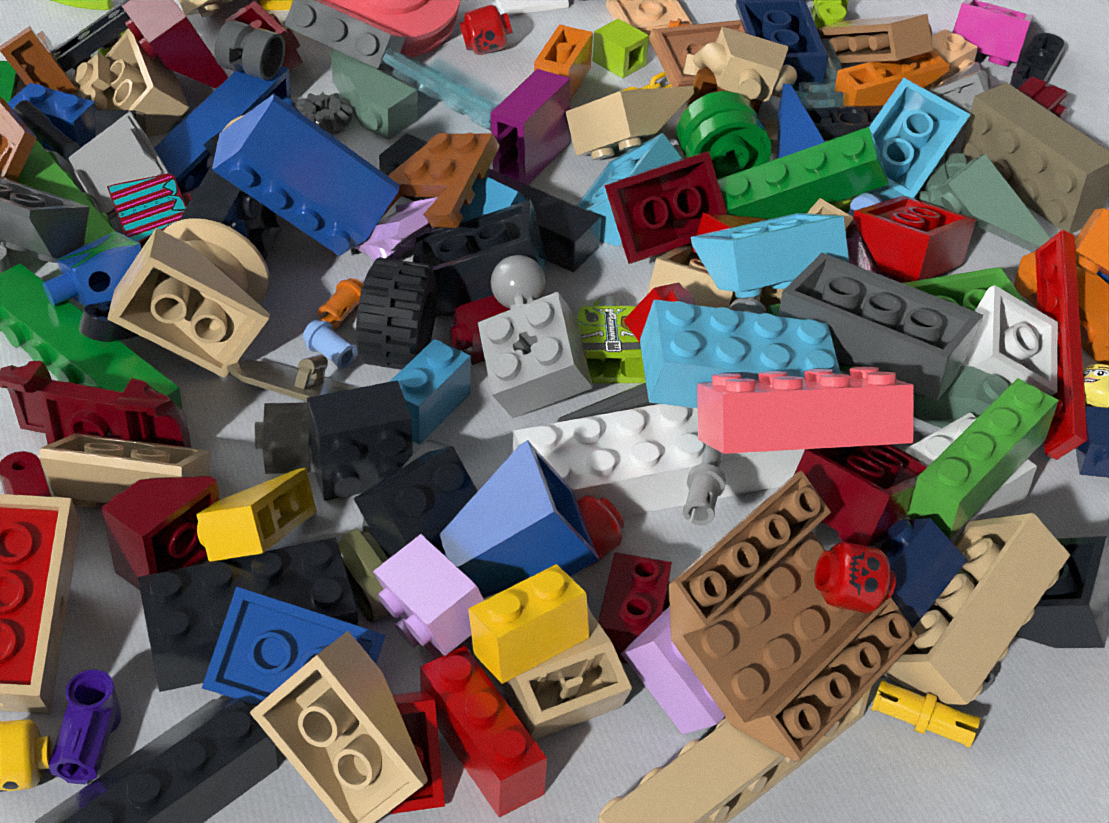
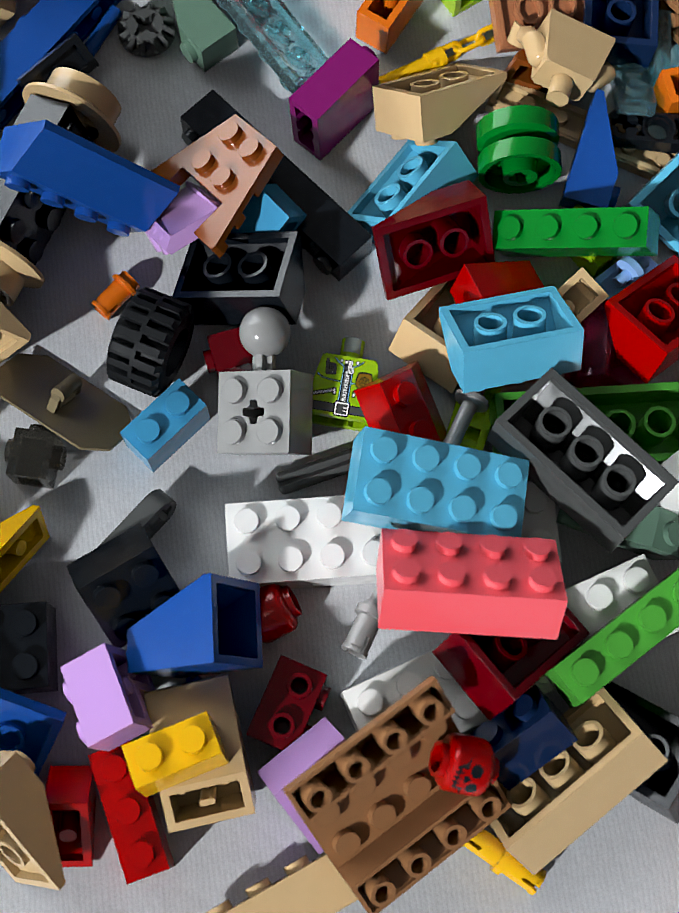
camera: 10 degrees right, 30 degrees up
(321, 337) = (93, 344): light blue pin -> none
(358, 437) = (89, 487): black brick -> none
(360, 558) = (76, 623): olive piece -> none

